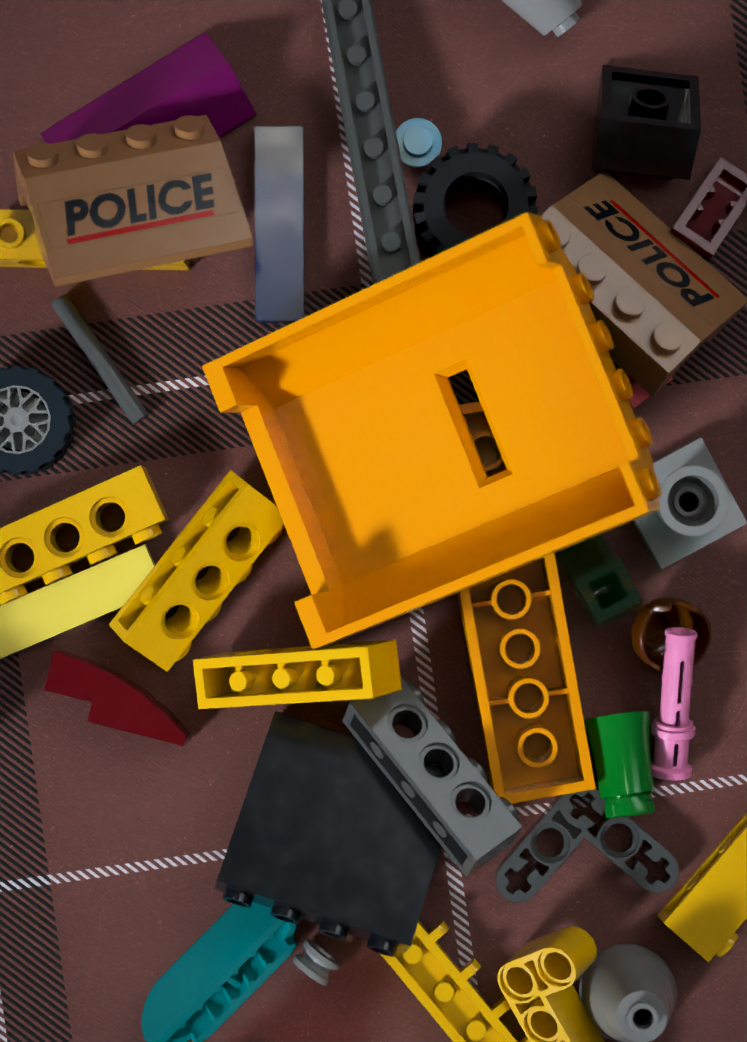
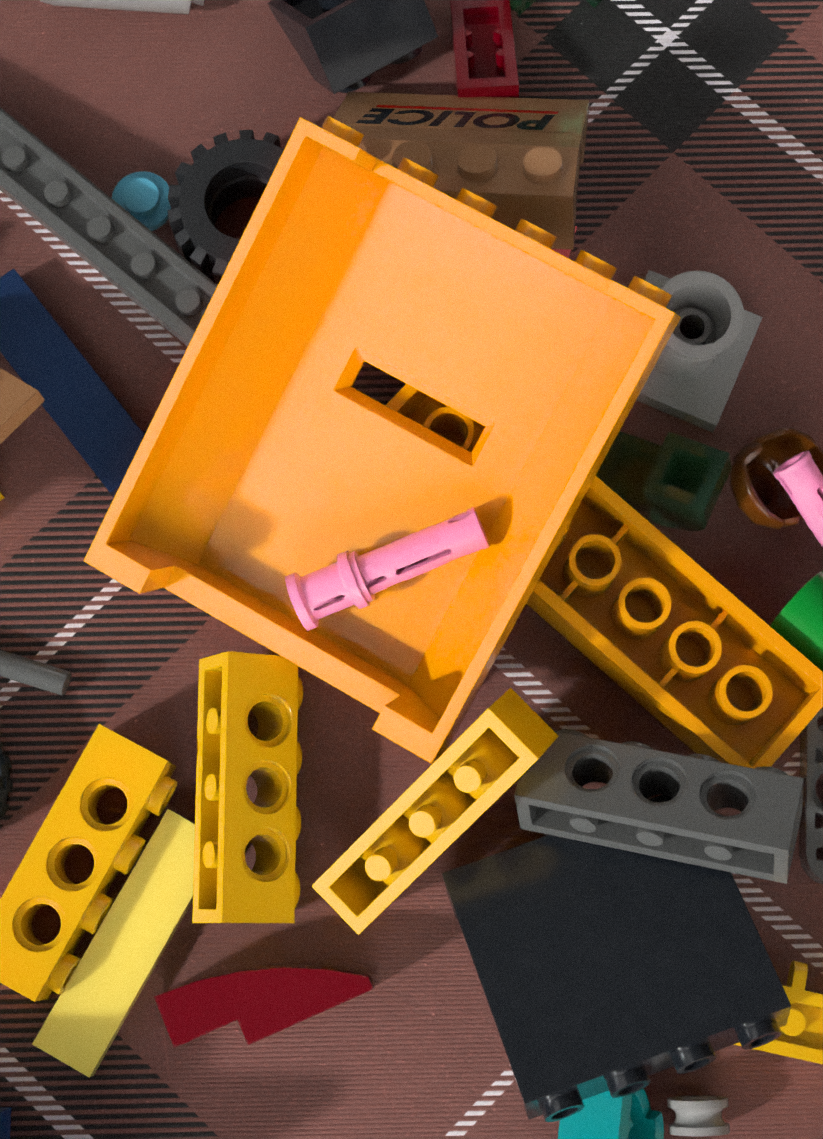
camera: 35 degrees left, 10 degrees down
(359, 502) = (357, 578): none -> bright pink pin

